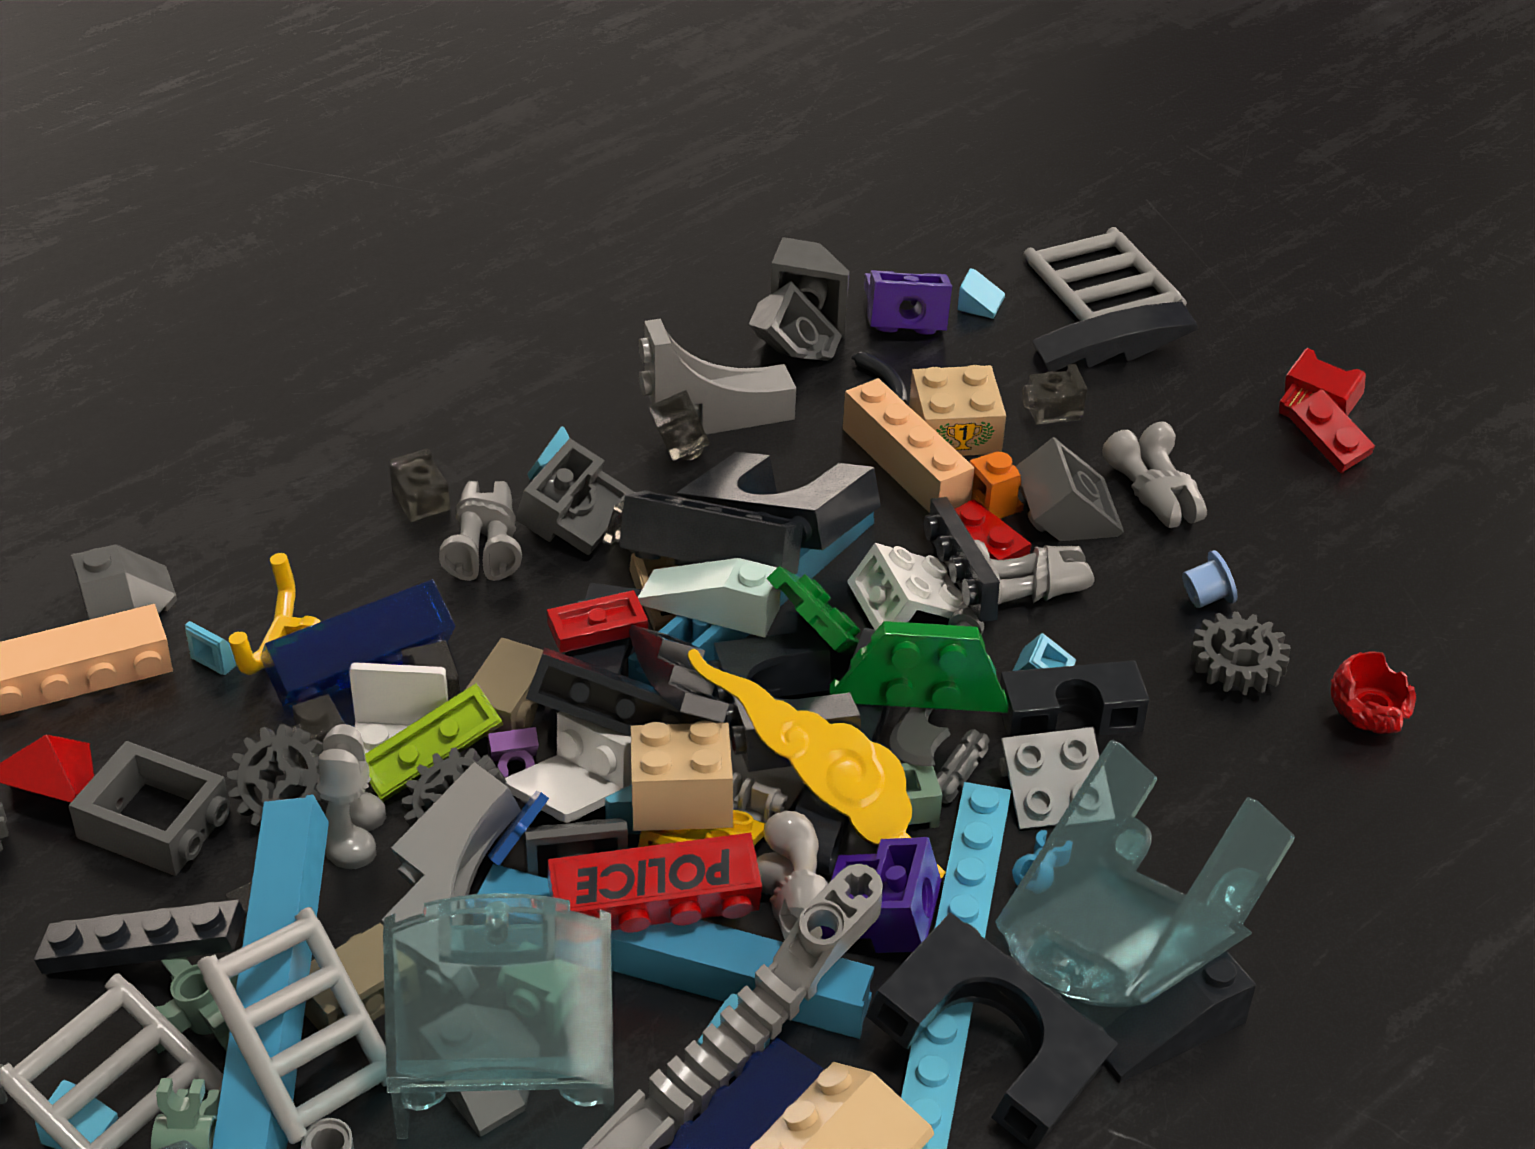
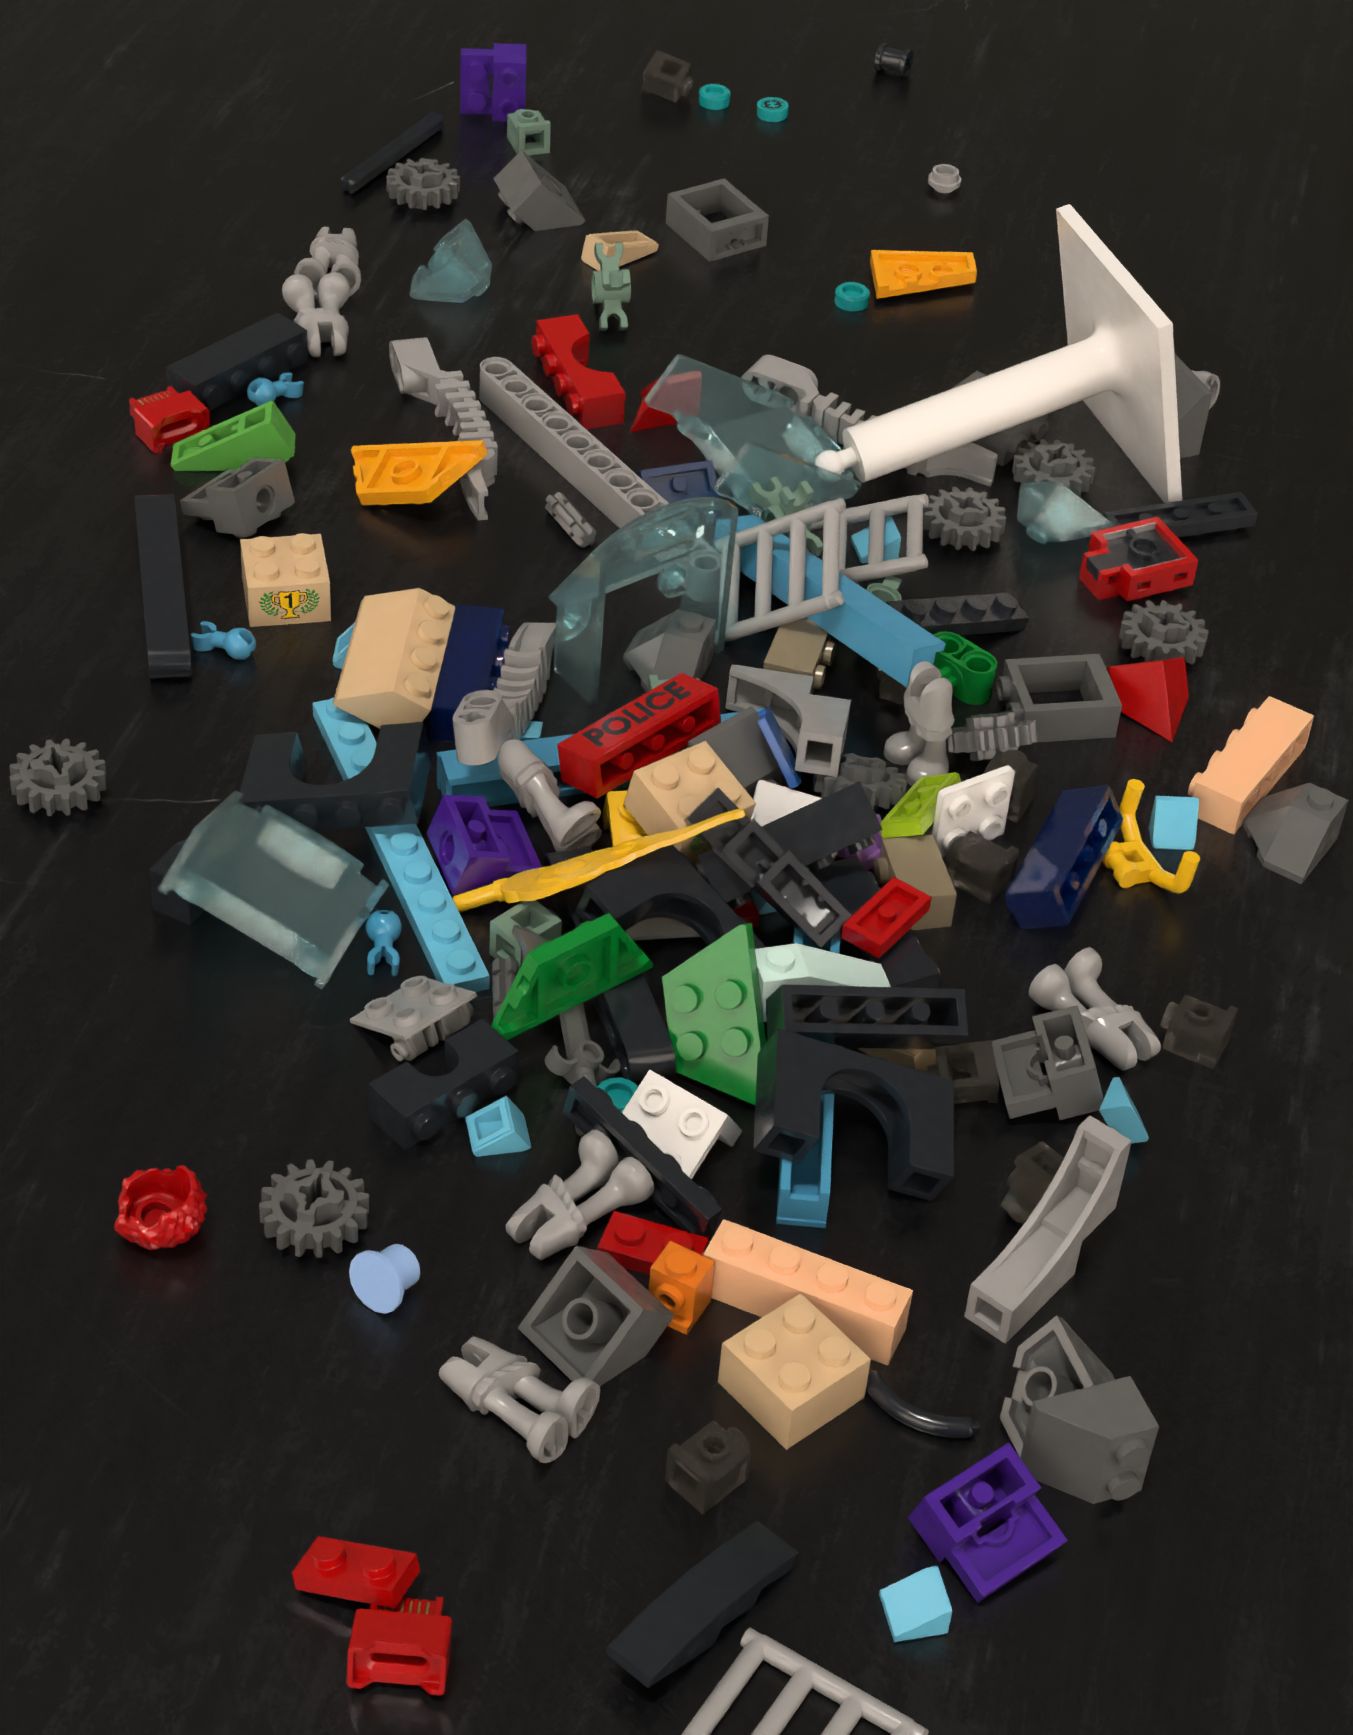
camera: 145 degrees right, 0 degrees up
(203, 874) = (967, 668): none -> green beam

